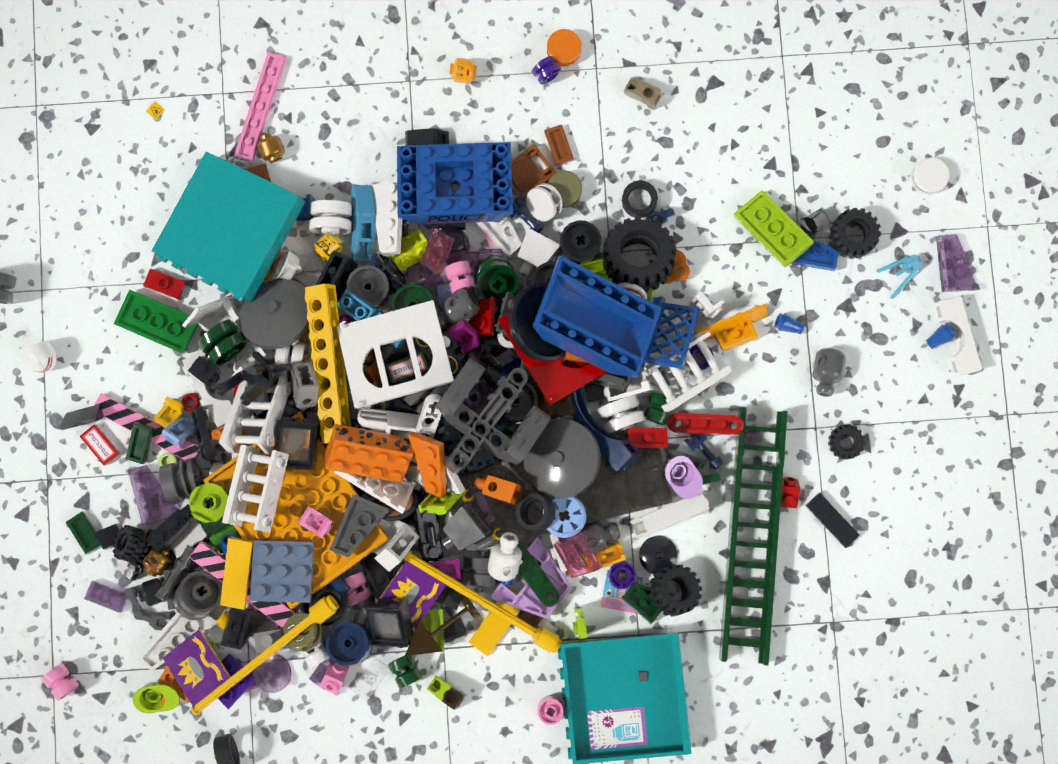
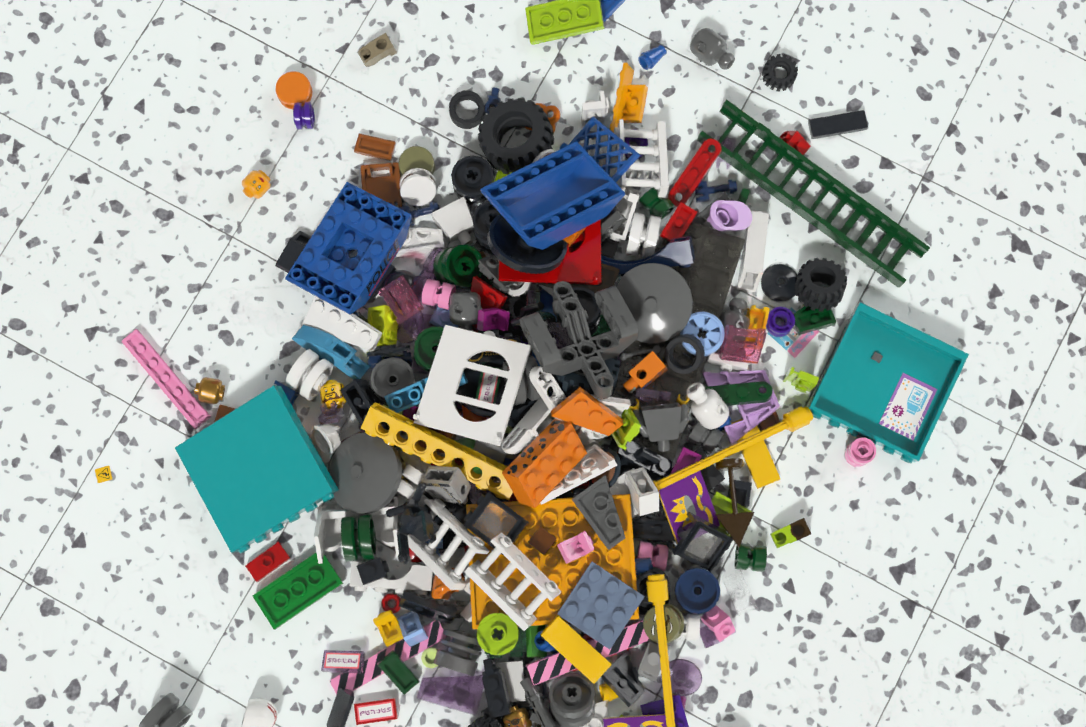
camera: 60 degrees left, 5 degrees down
(121, 394) = (343, 661): none -> tile
(306, 491) = (542, 540): none -> reddish brown tile
(308, 256) = (330, 415): none -> tile

